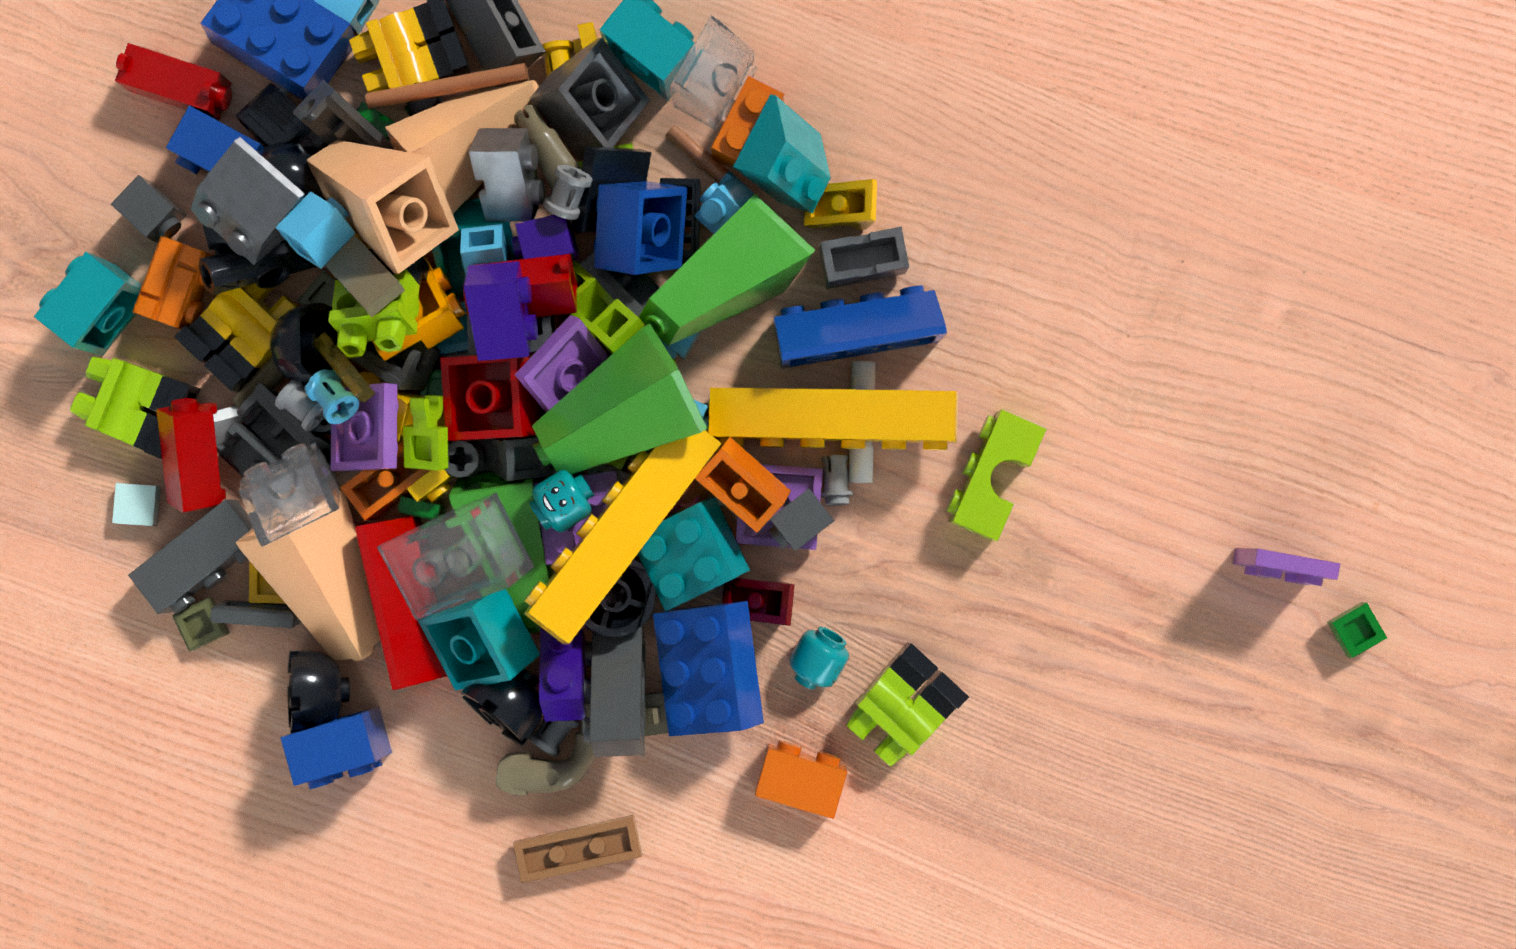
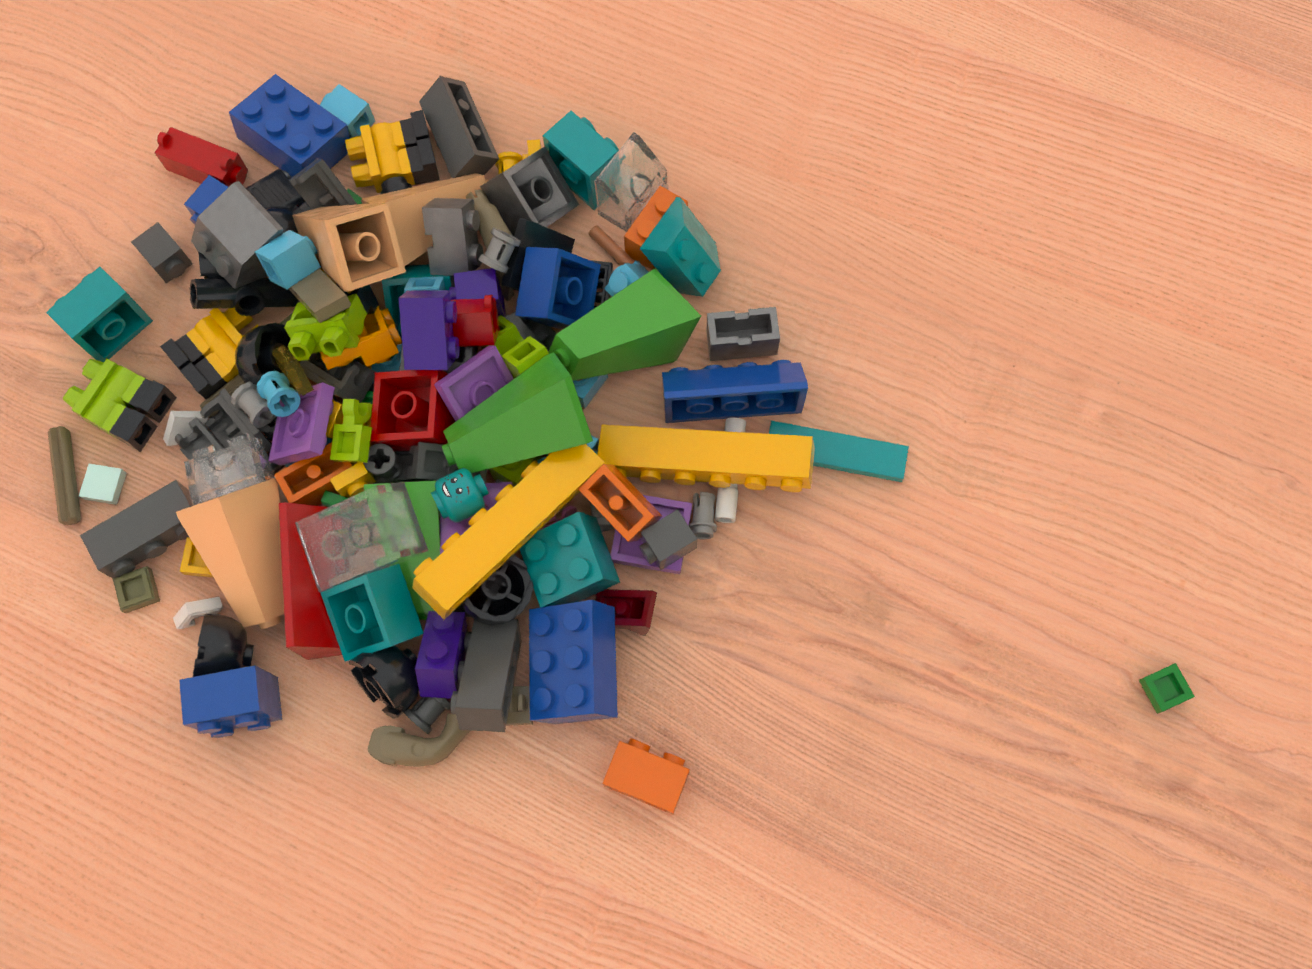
camera: 10 degrees right, 15 degrees down
(89, 498) = (64, 476): none -> dark tan axle
(172, 285) = (167, 310): orange brick -> none
(190, 455) = (153, 440): red brick -> none
(254, 614) = (182, 581): dark grey tile -> none
(276, 645) = (195, 609): none -> white tile
(446, 86) = (416, 175): nougat bar -> none
(577, 848) = (434, 822): medium nougat plate -> none
(819, 658) = (673, 667): teal head -> none
(845, 205) = (730, 291): yellow slope -> none
(905, 718) = (738, 723): lime hips -> none
(988, 386) = (851, 452): none -> teal tile
(1005, 440) = (856, 495): lime arch -> none
(1296, 568) = (1109, 620): medium lavender plate -> none

